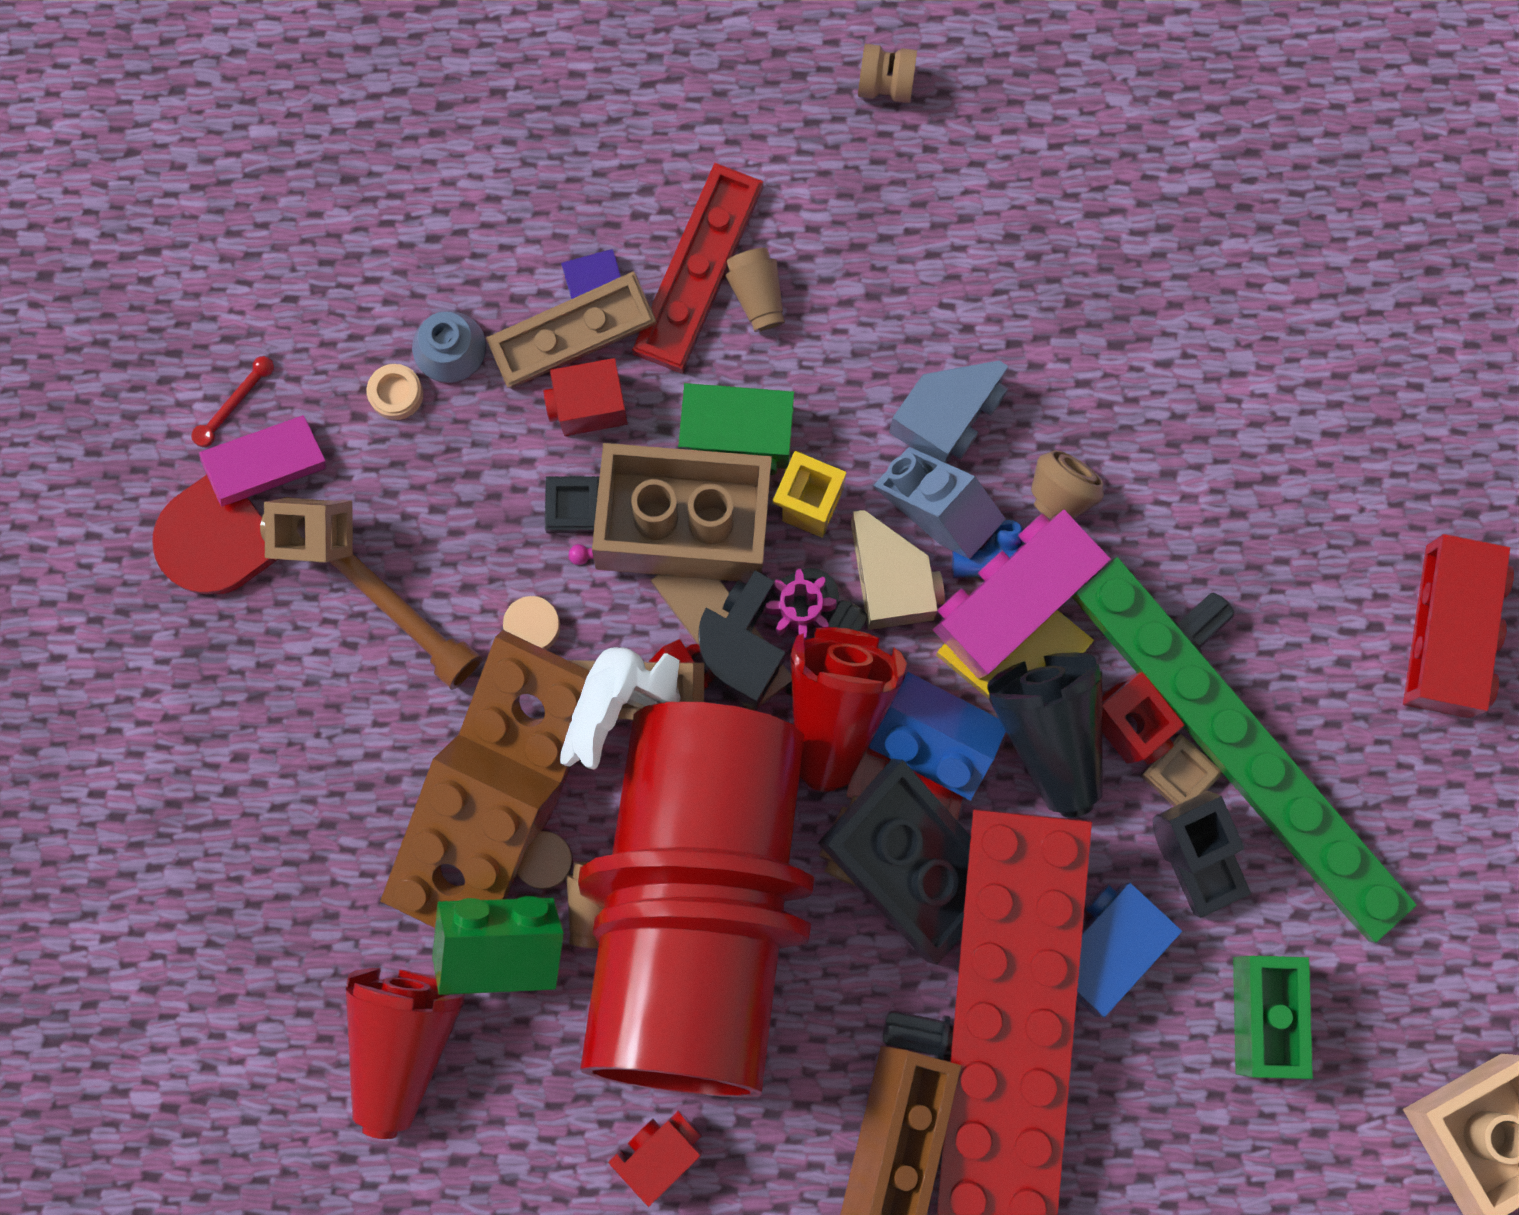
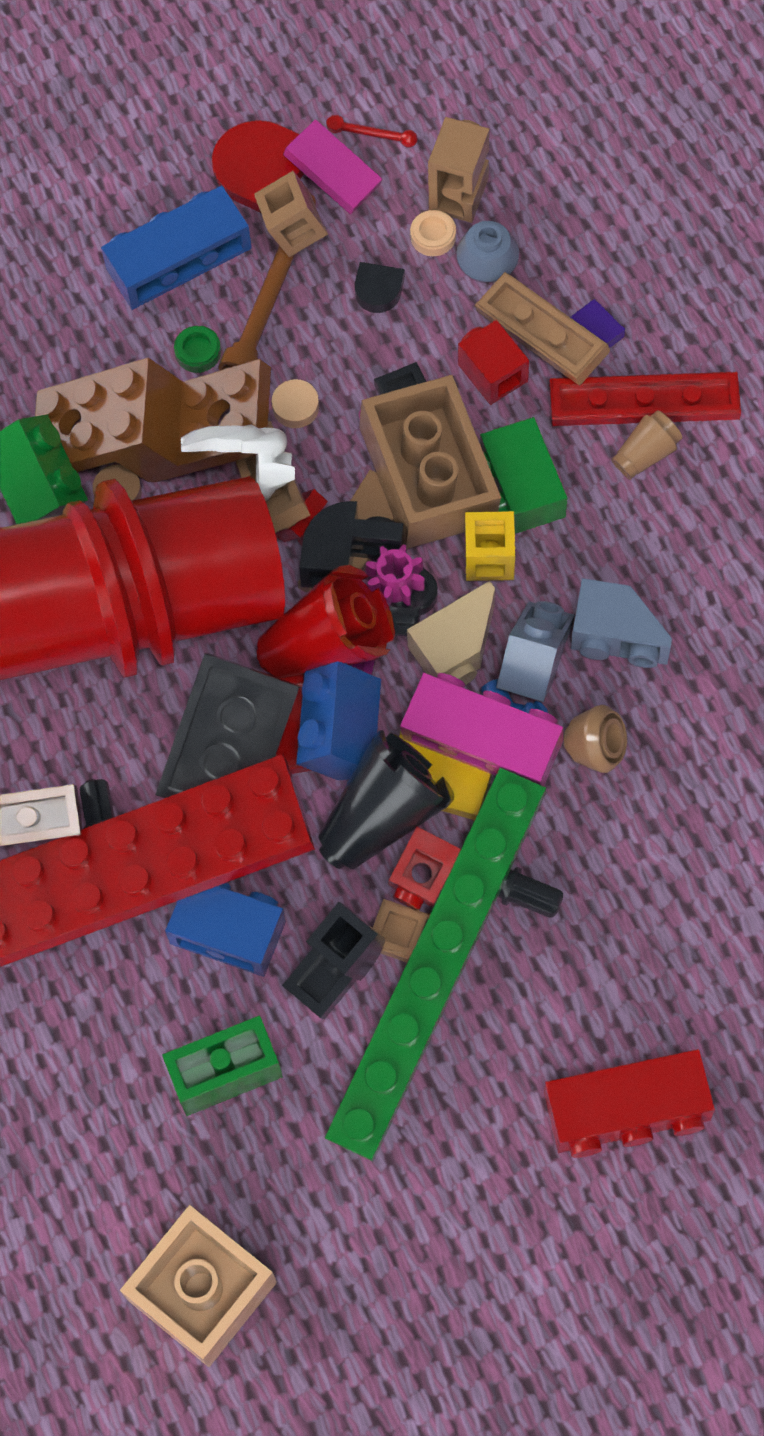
camera: 70 degrees right, 10 degrees down
(276, 672) = (176, 246): none -> blue brick
(346, 325) = (458, 168): none -> medium nougat brick
(412, 702) = (197, 349): none -> green tile
(432, 477) = (378, 287): none -> black tile

